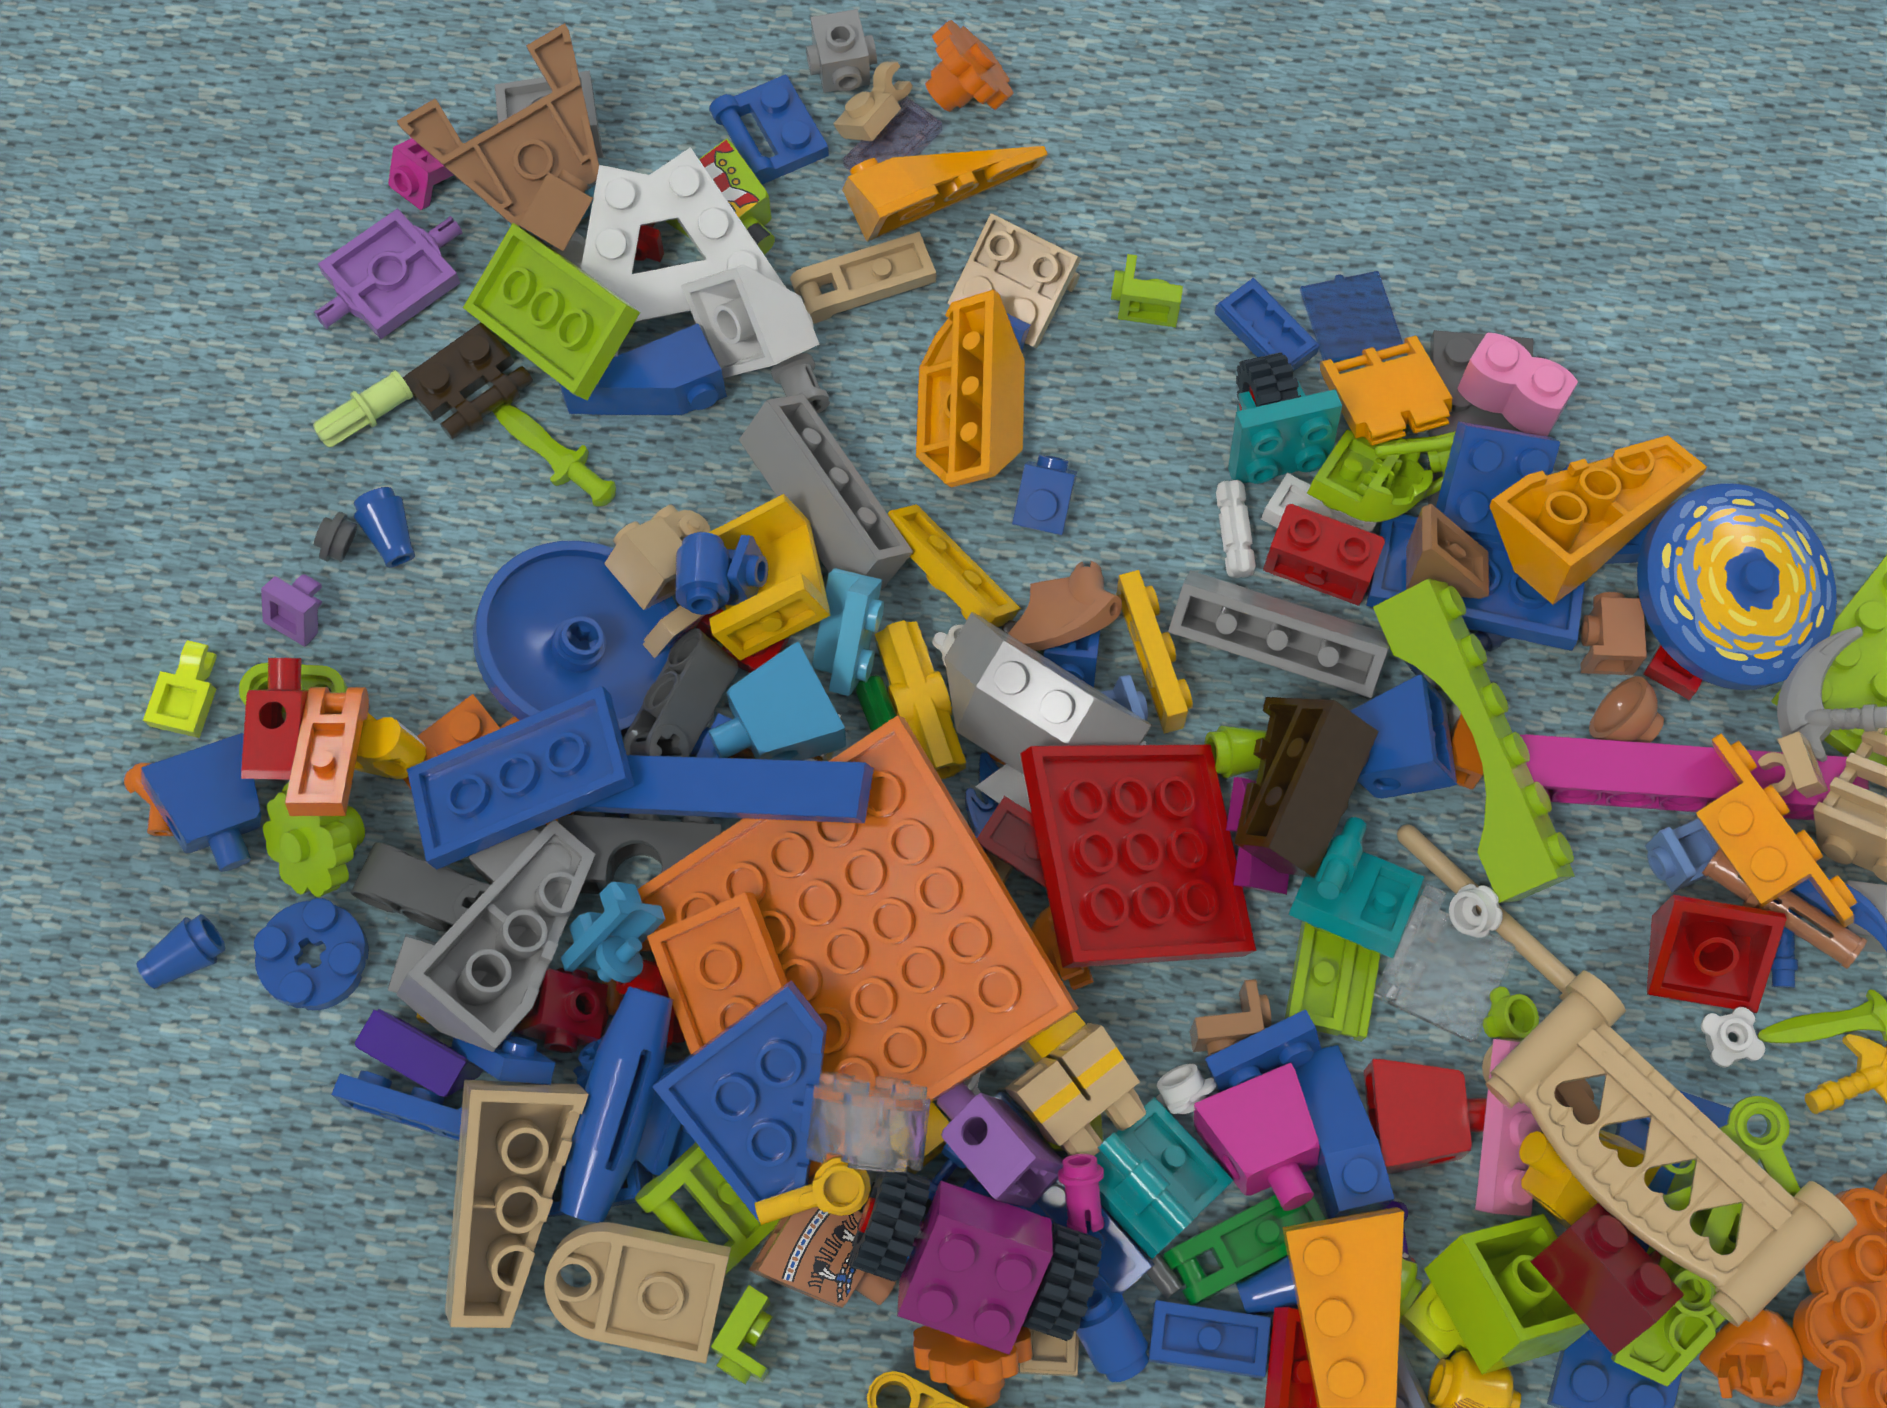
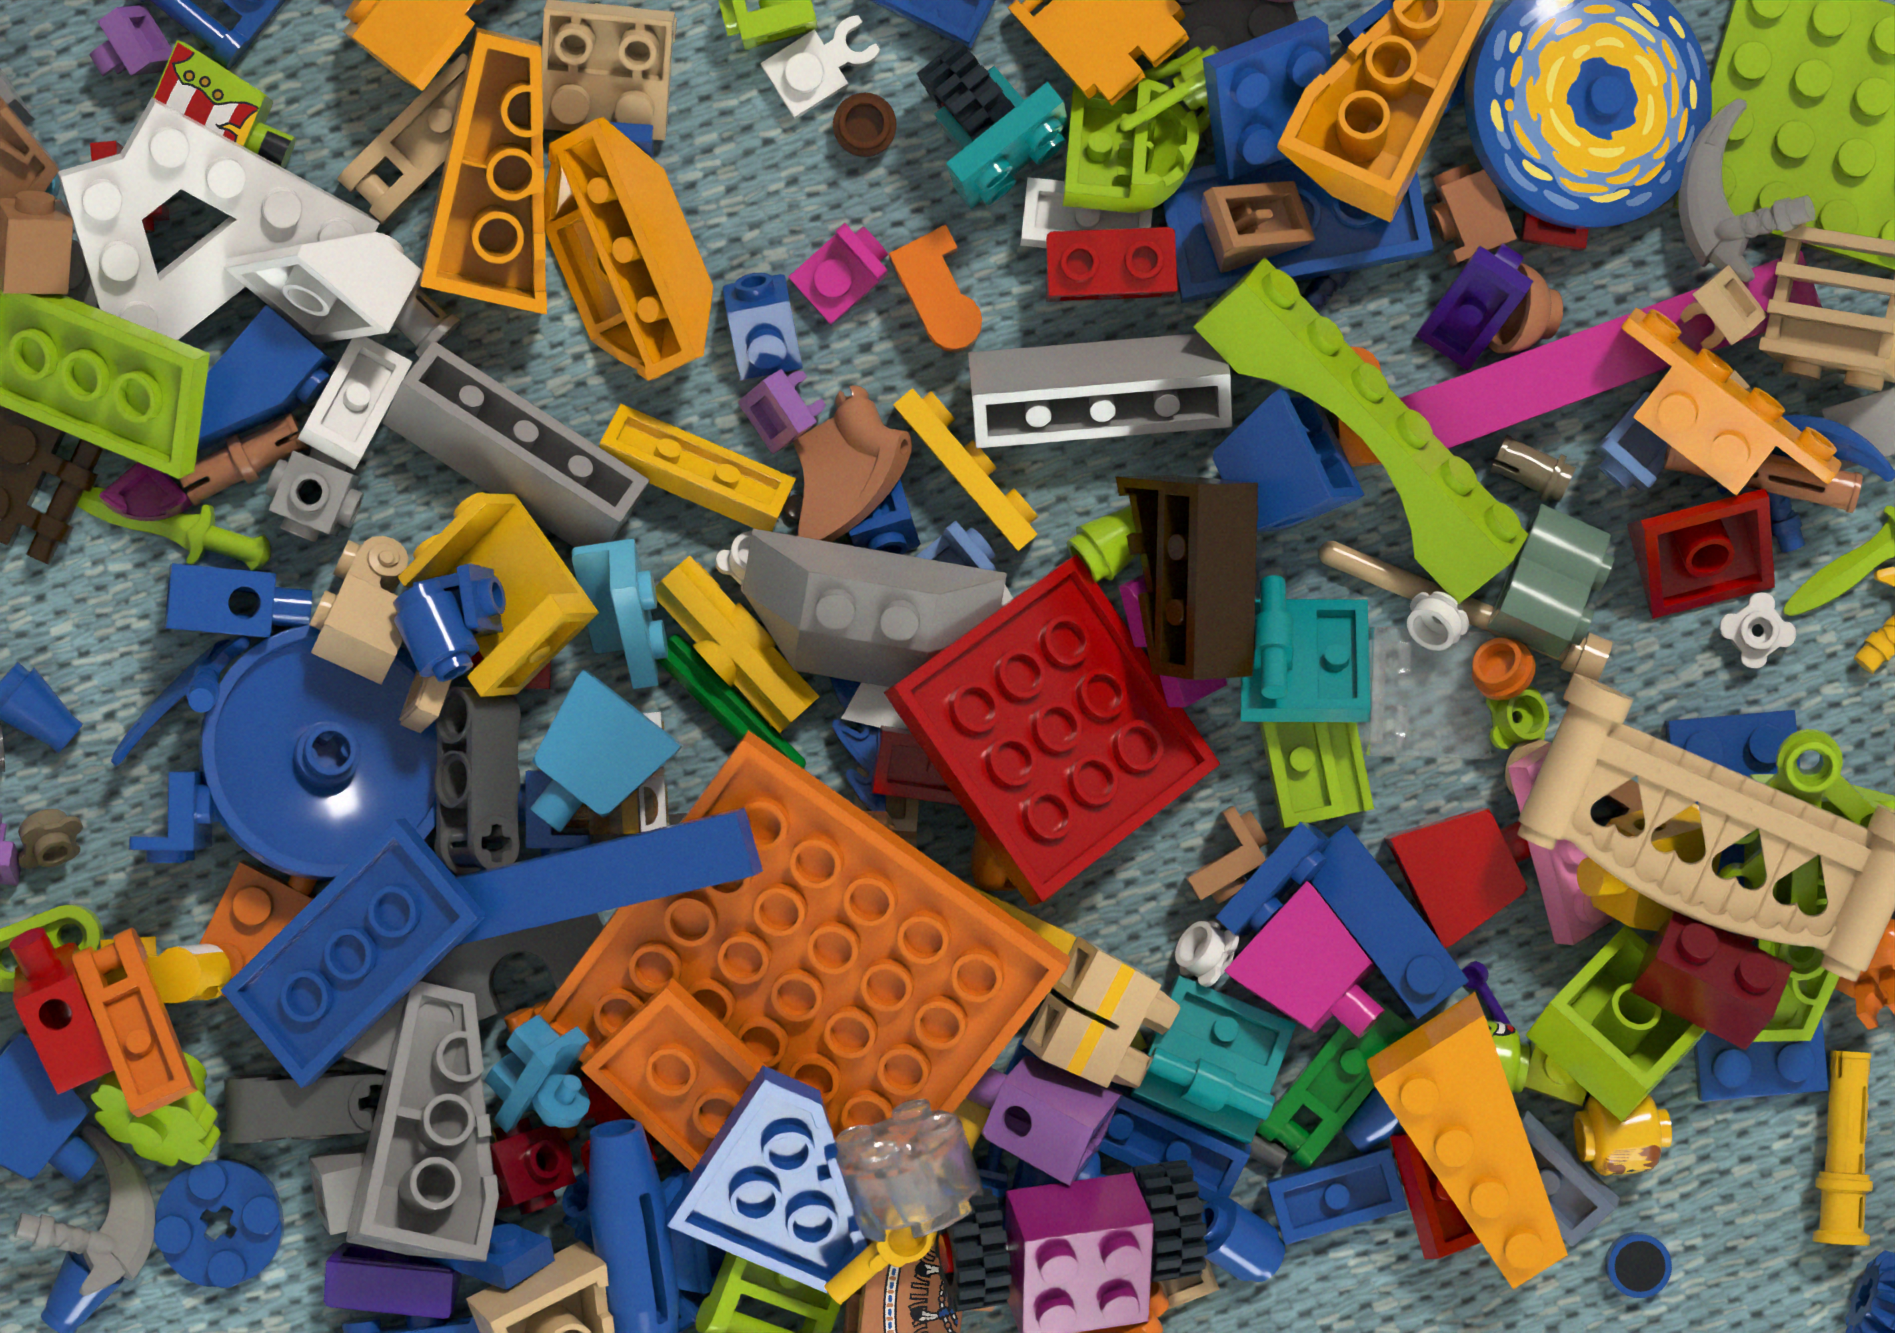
camera: 20 degrees left, 20 degrees up
(228, 926) = (127, 1232): none -> light grey piece
(346, 607) = (48, 839): none -> dark tan plate
(447, 641) = (188, 821): none -> blue bracket
(509, 545) = (197, 682): none -> blue piece
(545, 421) = (145, 495): none -> magenta tile
(560, 502) = (201, 597): none -> blue torso
(627, 427) = (243, 458): none -> nougat pin
(665, 464) = (336, 506): none -> light grey brick
(695, 132) = (132, 43): none -> medium lavender tile
(720, 414) = (355, 400): none -> white plate
(894, 314) = (491, 192): none -> light orange wedge
(1031, 553) = (779, 410): none -> medium lavender tile
(1082, 1190) = (1144, 1110): dark pink pin -> none
(1121, 483) = (841, 272): none -> dark pink bracket
(1160, 348) = (810, 71): none -> white plate
(1182, 395) = (864, 124): none -> reddish brown plate
(1184, 534) = (946, 314): none -> orange leg
(1235, 529) = (995, 268): white axle -> none
(1515, 968) = (1503, 668): none -> orange plate
(1578, 921) = (1552, 581): none -> sand green brick
(1593, 838) = (1533, 469): none -> dark tan pin
(1595, 691) = (1476, 305): none -> dark purple plate

